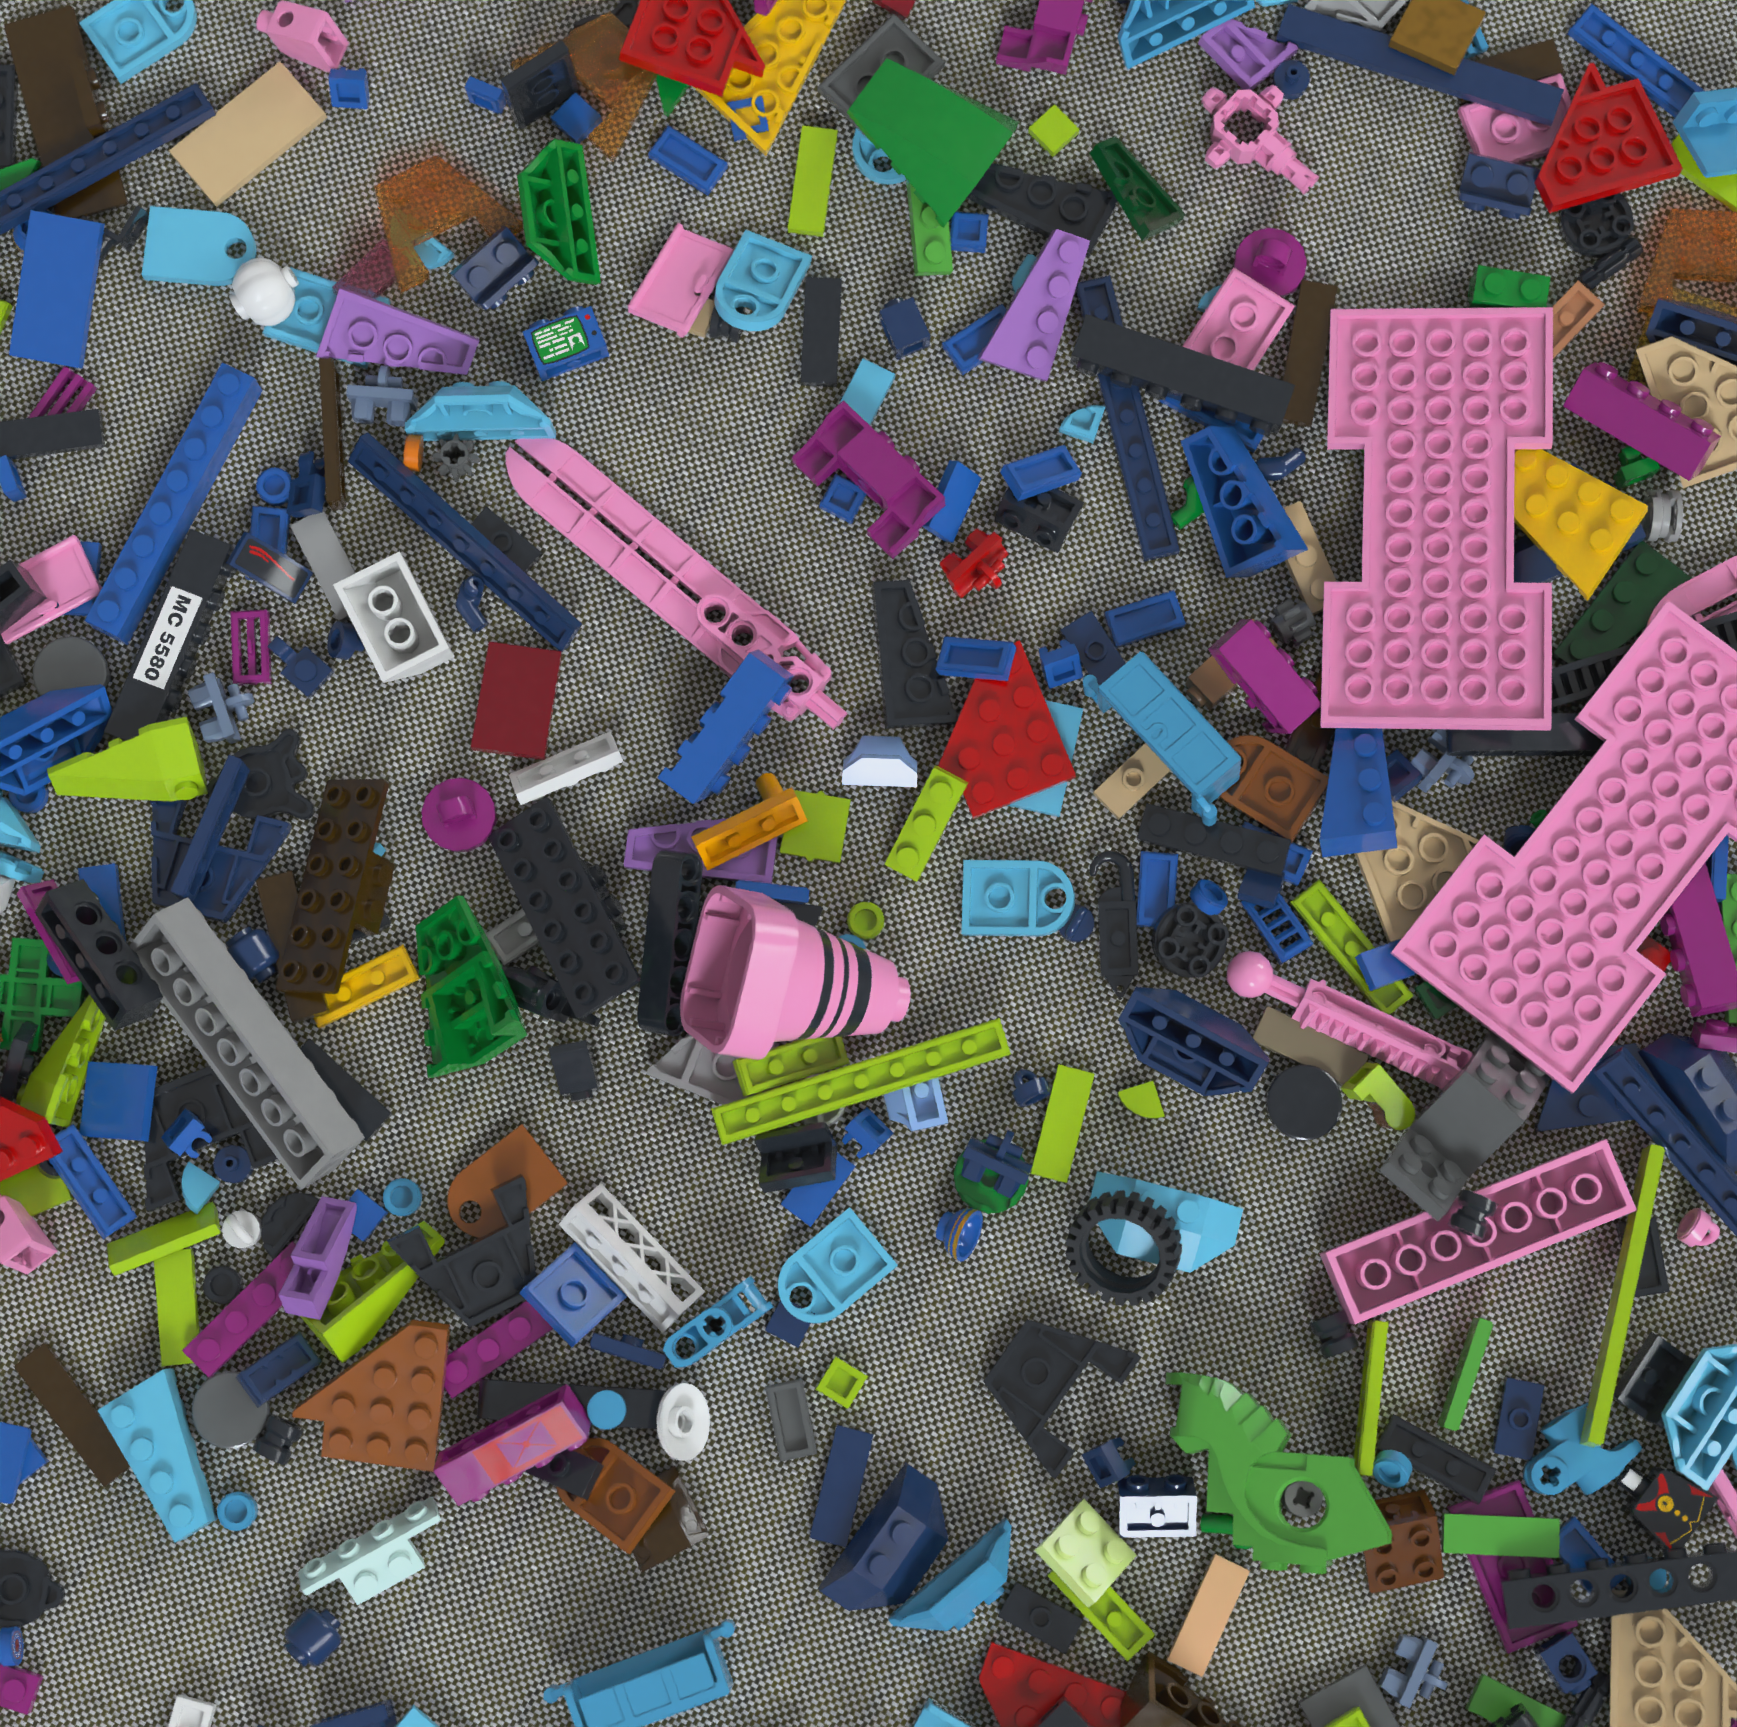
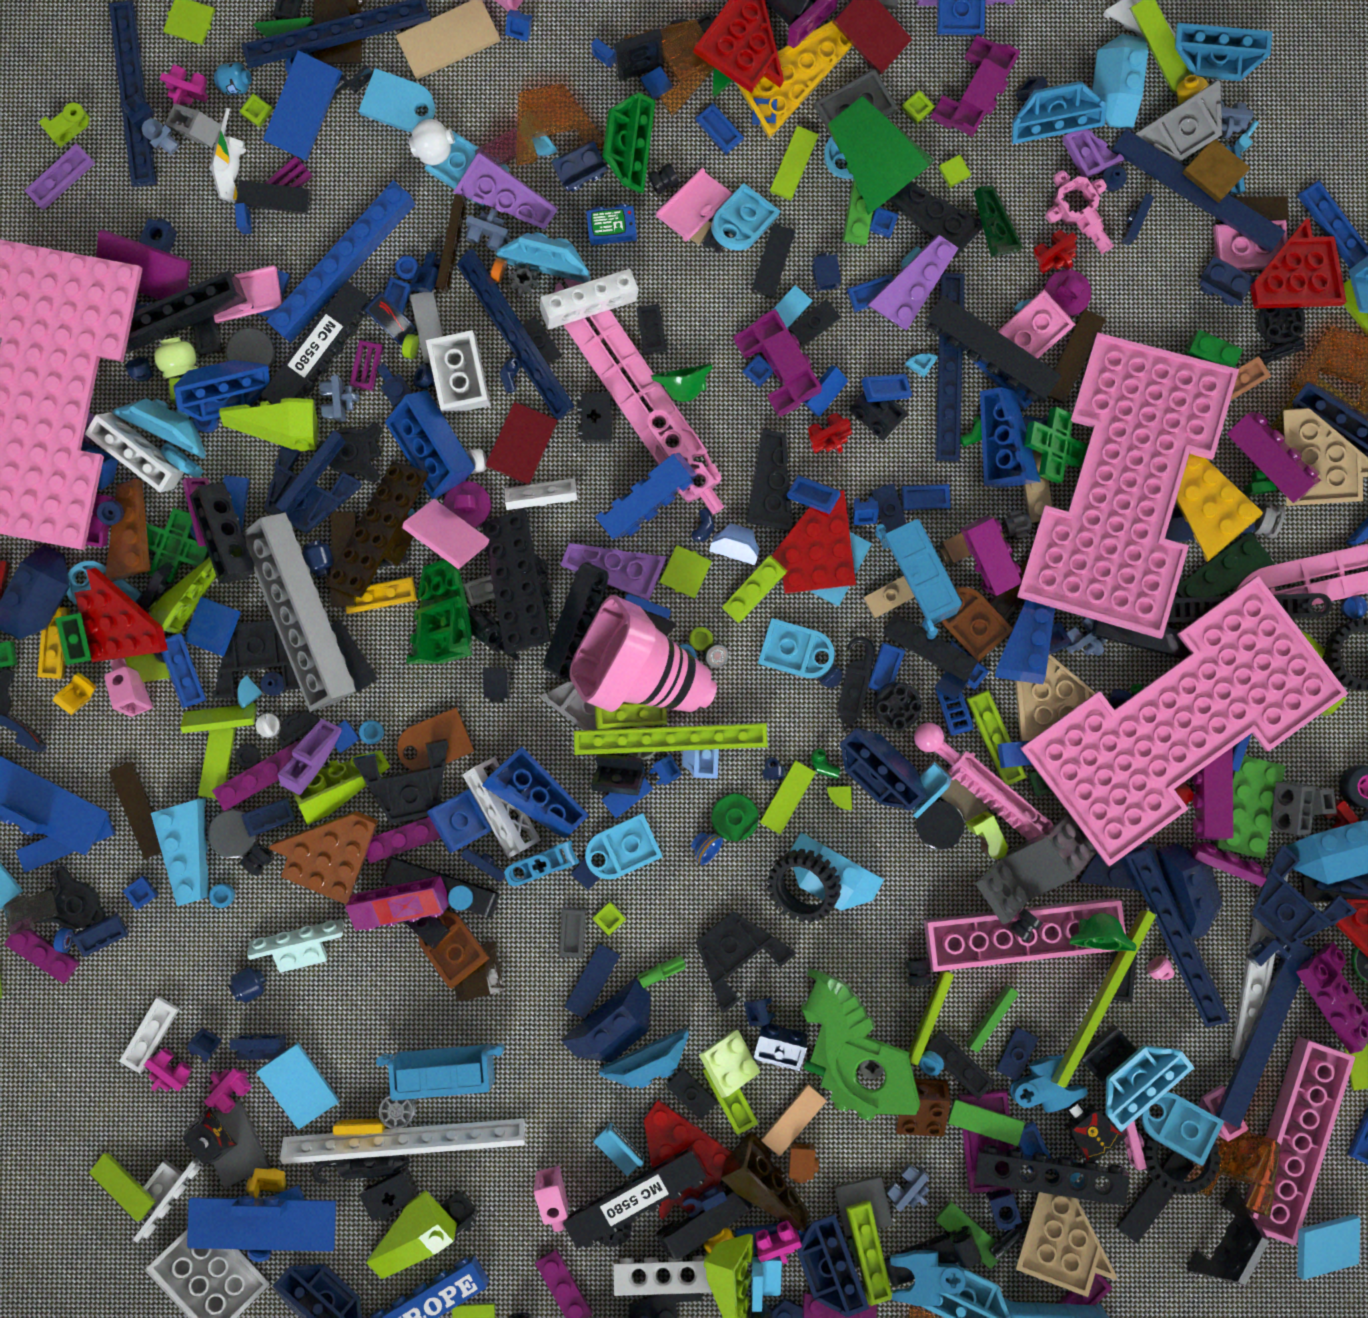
camera: 15 degrees right, 5 degrees up
(65, 1622) = (100, 934): none -> dark blue plate
(110, 1541) = (140, 892): none -> blue tile
(183, 1132) = (246, 657): blue tile -> none
(311, 600) = (410, 346): none -> lime tile
(378, 736) = (429, 443): none -> blue slope
(439, 864) = (445, 533): none -> bright pink tile
(453, 745) = (478, 459): none -> white tile
(561, 459) = (588, 299): none -> white brick
(611, 612) = (599, 404): none -> black brick
(624, 254) = (664, 178): none -> black wheel
(666, 480) = (651, 329): none -> black plate
(679, 1220) = (534, 792): none -> blue wedge
(683, 1421) = (505, 917): white dish -> none
(738, 546) = (684, 383): none -> green hat
(753, 826) = (646, 562): light orange piece -> none
(827, 753) = (705, 528): none -> dark blue arm
(895, 938) = (715, 655): none -> tile
(908, 406) = (814, 323): none -> black plate
(943, 1441) = (661, 971): none -> bright green axle
(973, 52) = (917, 107): none -> lime tile
(999, 1157) = (743, 809): dark blue hips -> none
(1100, 1061) = (821, 764): none -> green arm
(1209, 897) = (917, 682): blue tile -> none
(1239, 1676) = (802, 1162): none -> dark orange brick
(1240, 212) = (1059, 255): none -> red hips
(1277, 1039) = (935, 783): none -> medium azure panel
(1315, 489) = (1055, 445): none -> green plate
(1340, 129) = (1136, 219): none -> dark blue plate
(1590, 1195) = (1103, 933): none -> green hat

